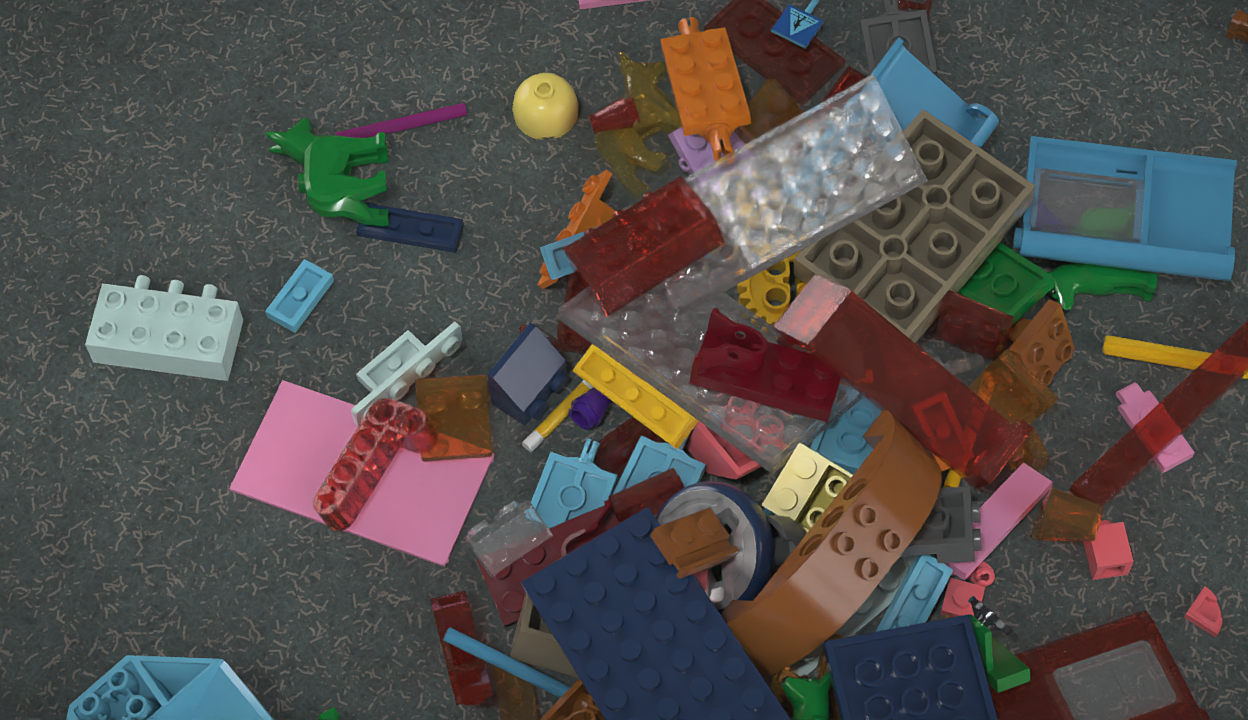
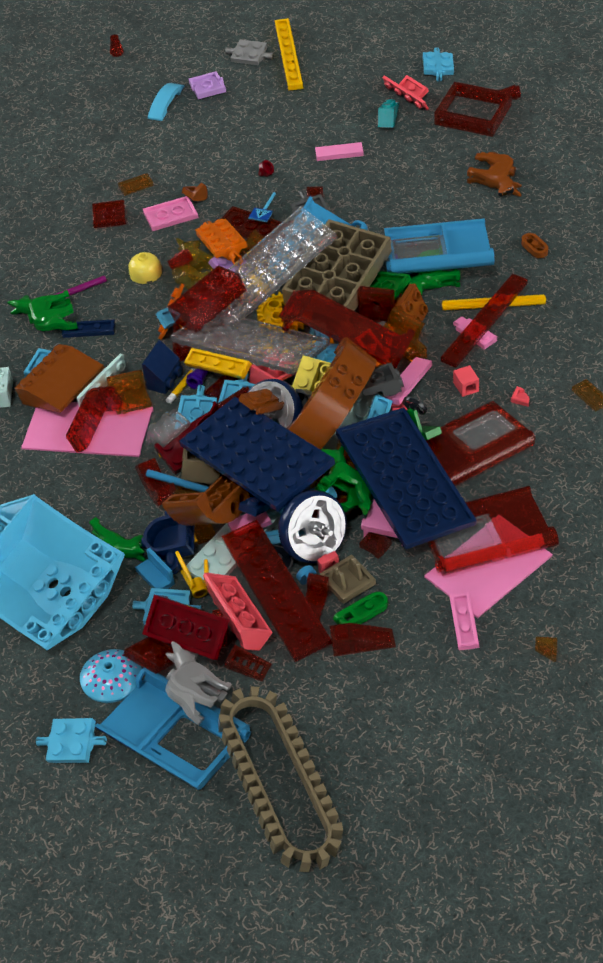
camera: 10 degrees left, 15 degrees down
(328, 350) = (58, 379): none -> dark orange slope
(763, 370) = (270, 337): dark red plate -> none
(1066, 518) = (441, 369): clear orange slope -> none

